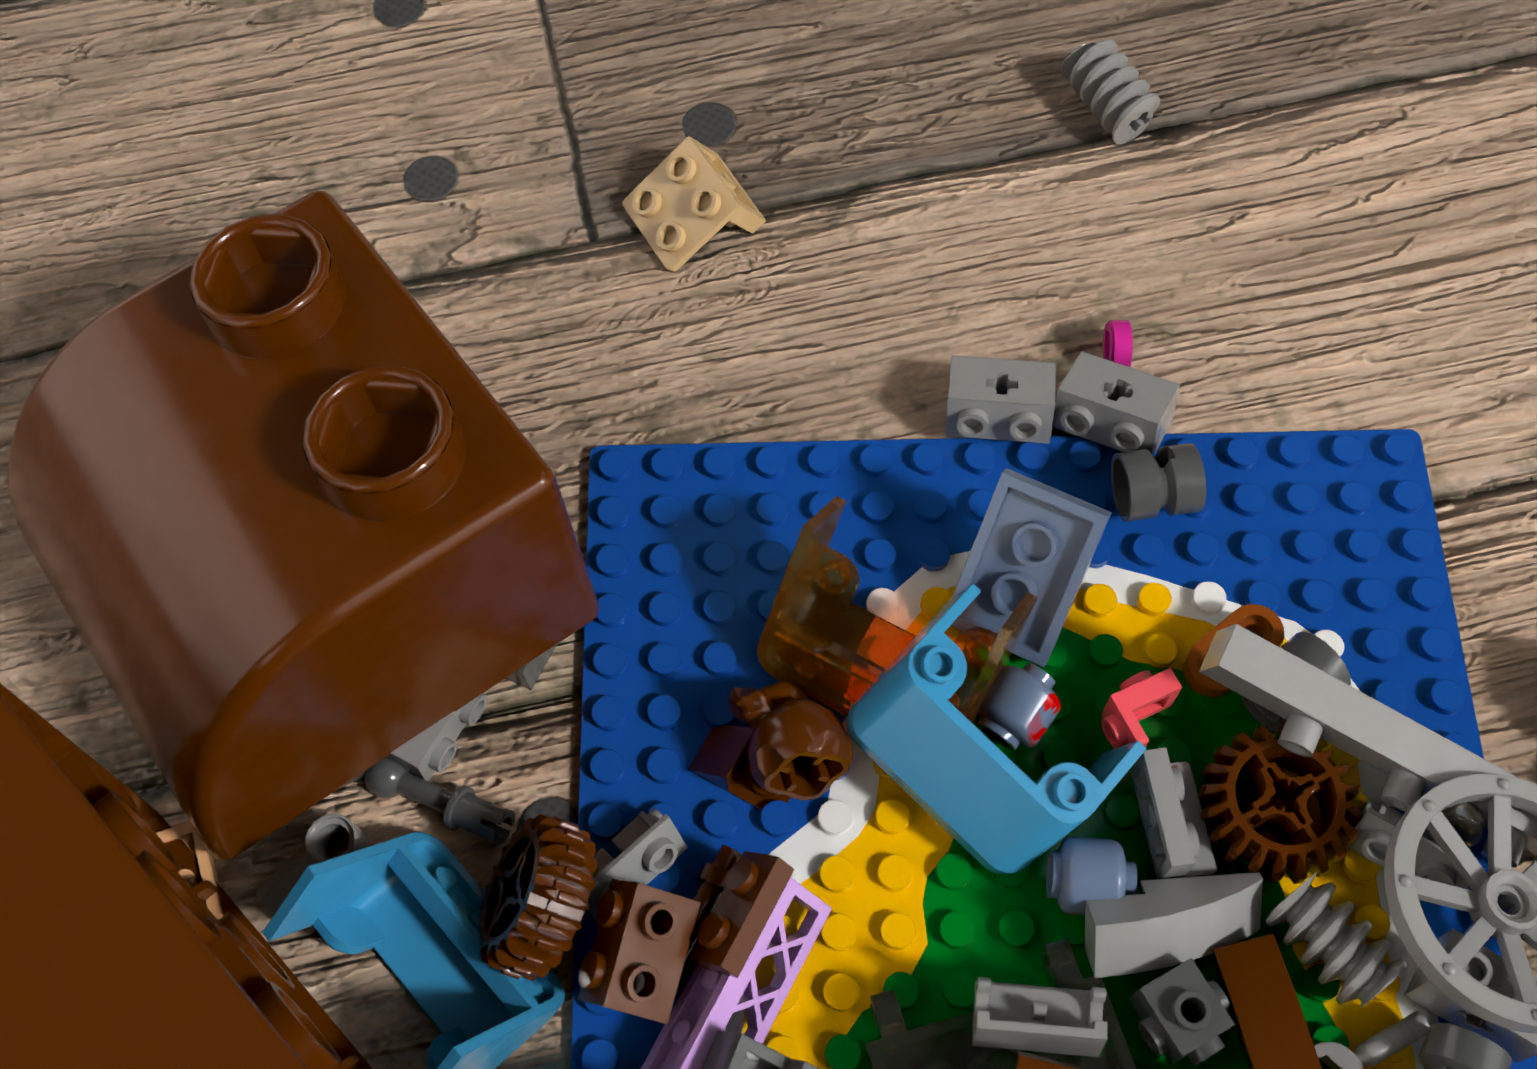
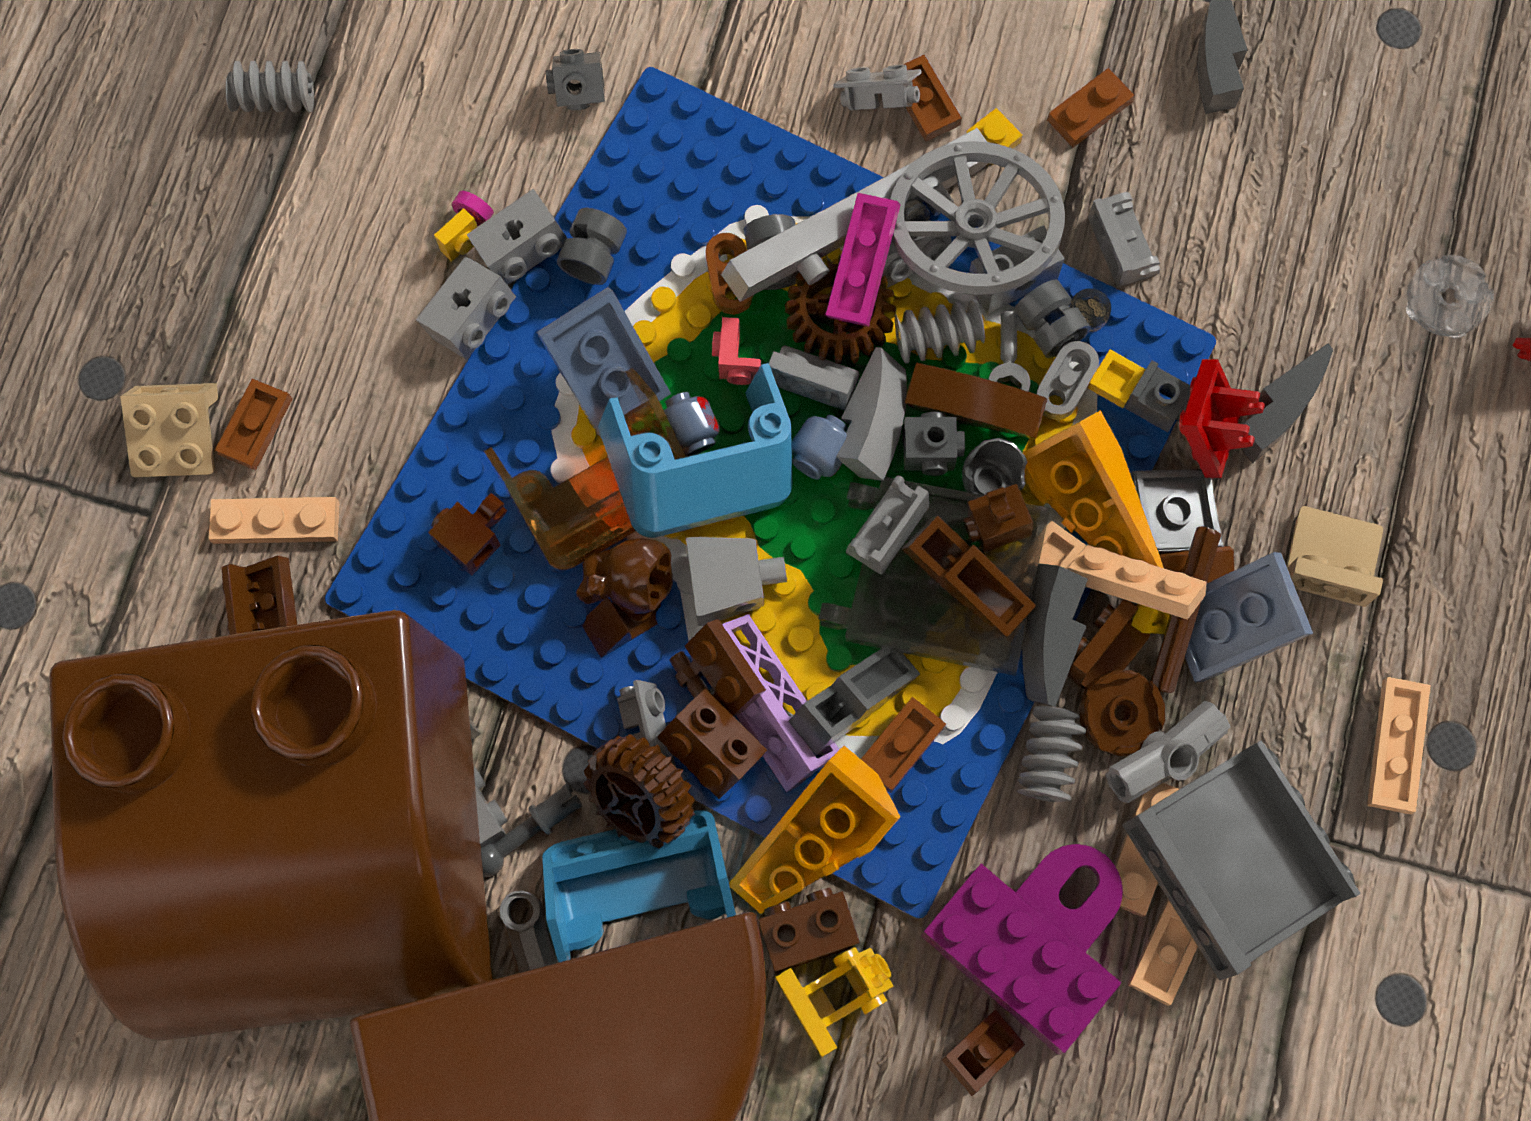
camera: 60 degrees left, 10 degrees up
(549, 385) = (259, 595): none -> reddish brown bracket
(652, 354) = (274, 520): none -> light nougat plate
(740, 540) = (468, 535): none -> reddish brown brick
(742, 275) = (253, 424): none -> dark orange plate
(860, 857) = (729, 576): none -> light grey torso
(1074, 338) = (453, 235): none -> yellow plate
(1342, 362) = (576, 79): none -> dark grey brick
(1356, 787) = (863, 259): none -> dark pink plate

